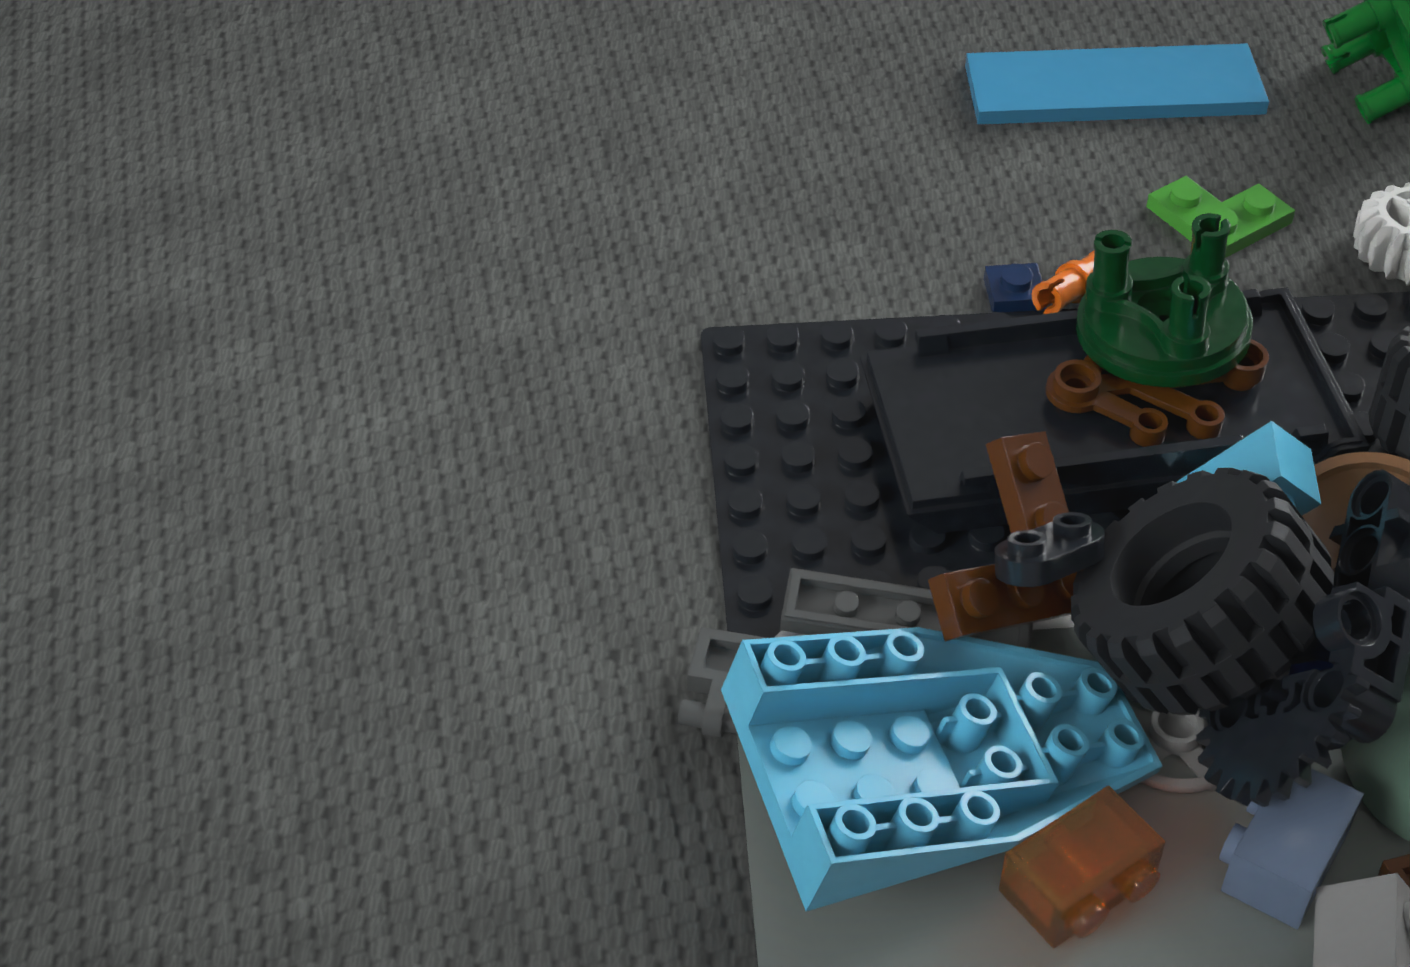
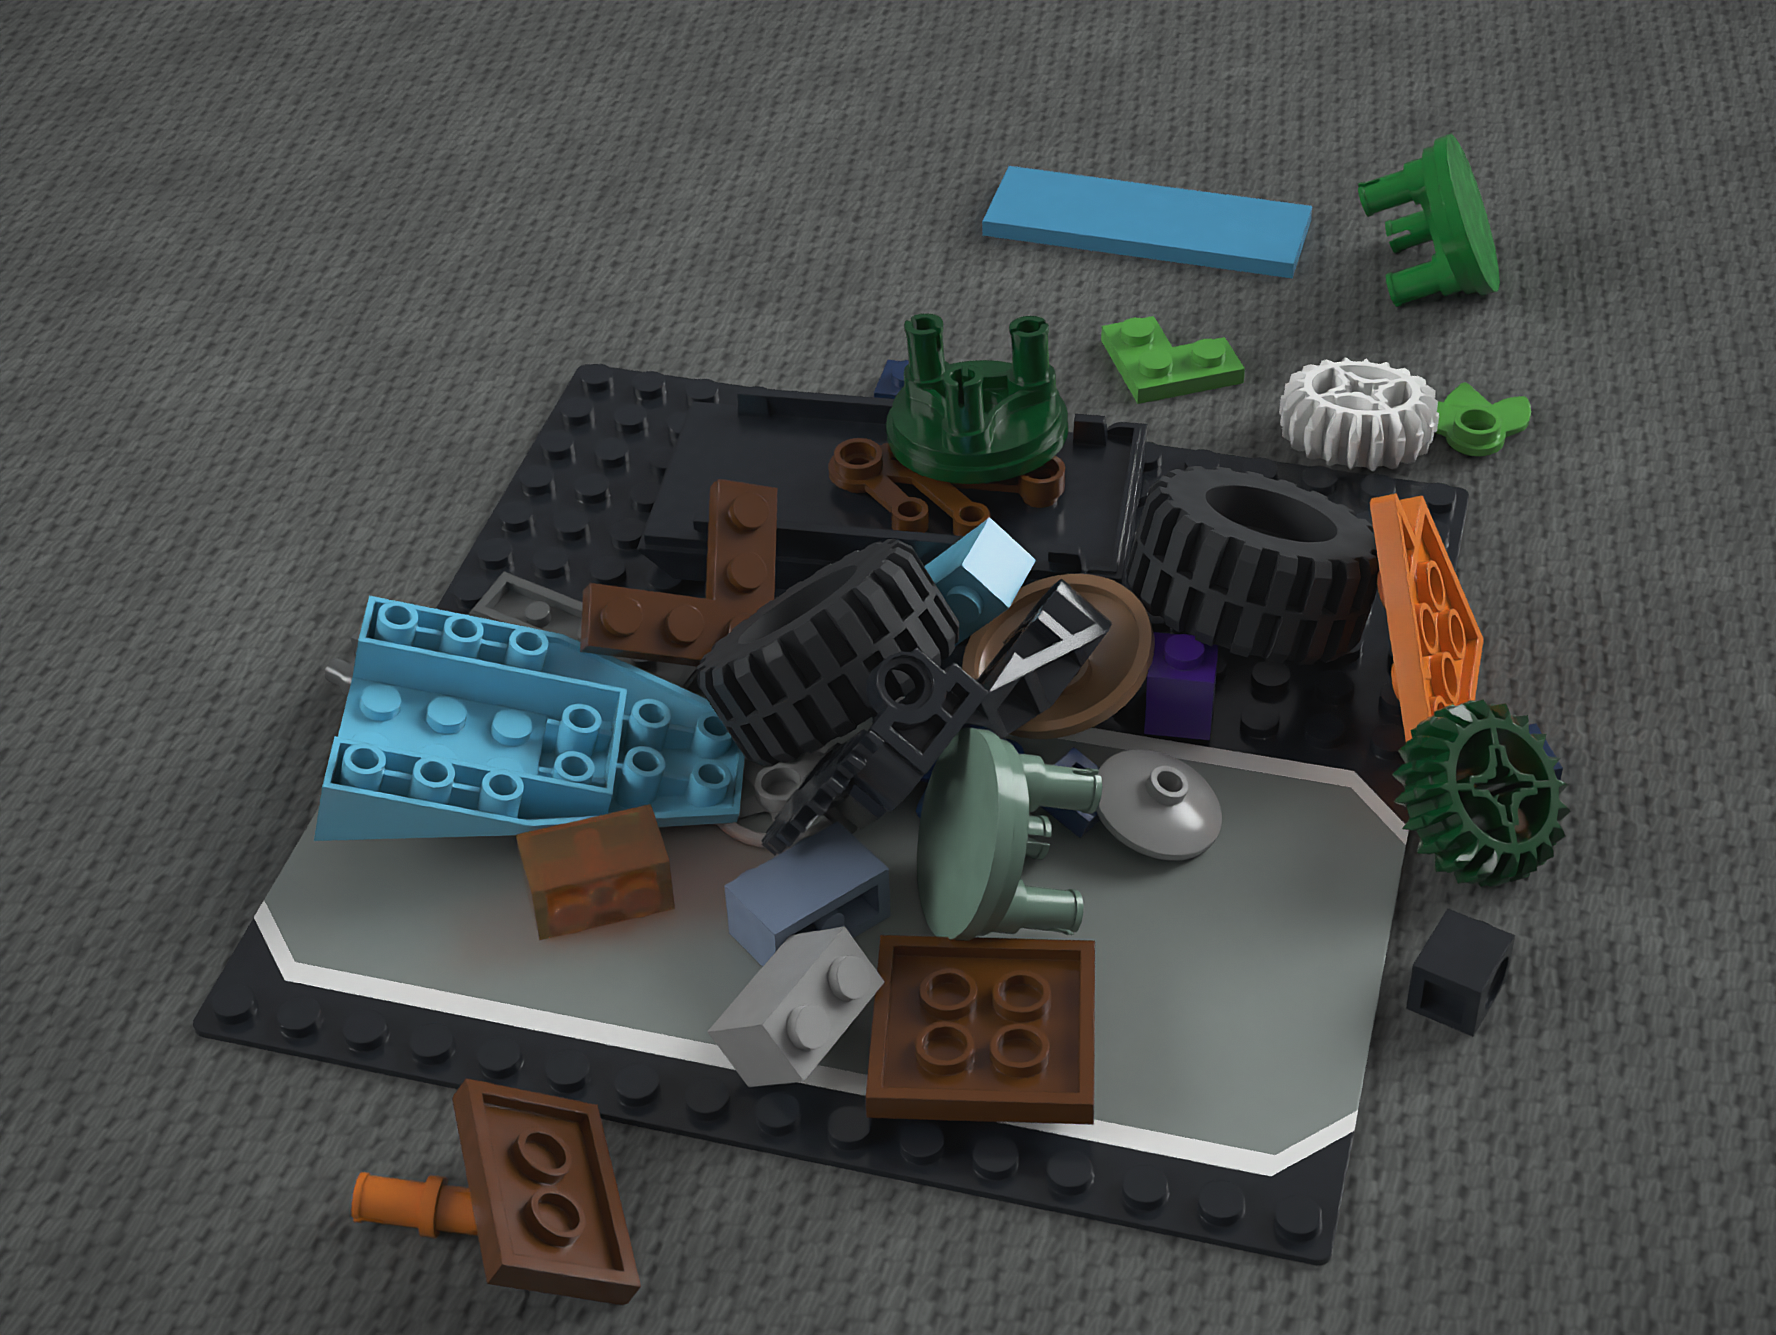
camera: 20 degrees right, 5 degrees down
(1050, 551) = (686, 589): black plate -> none

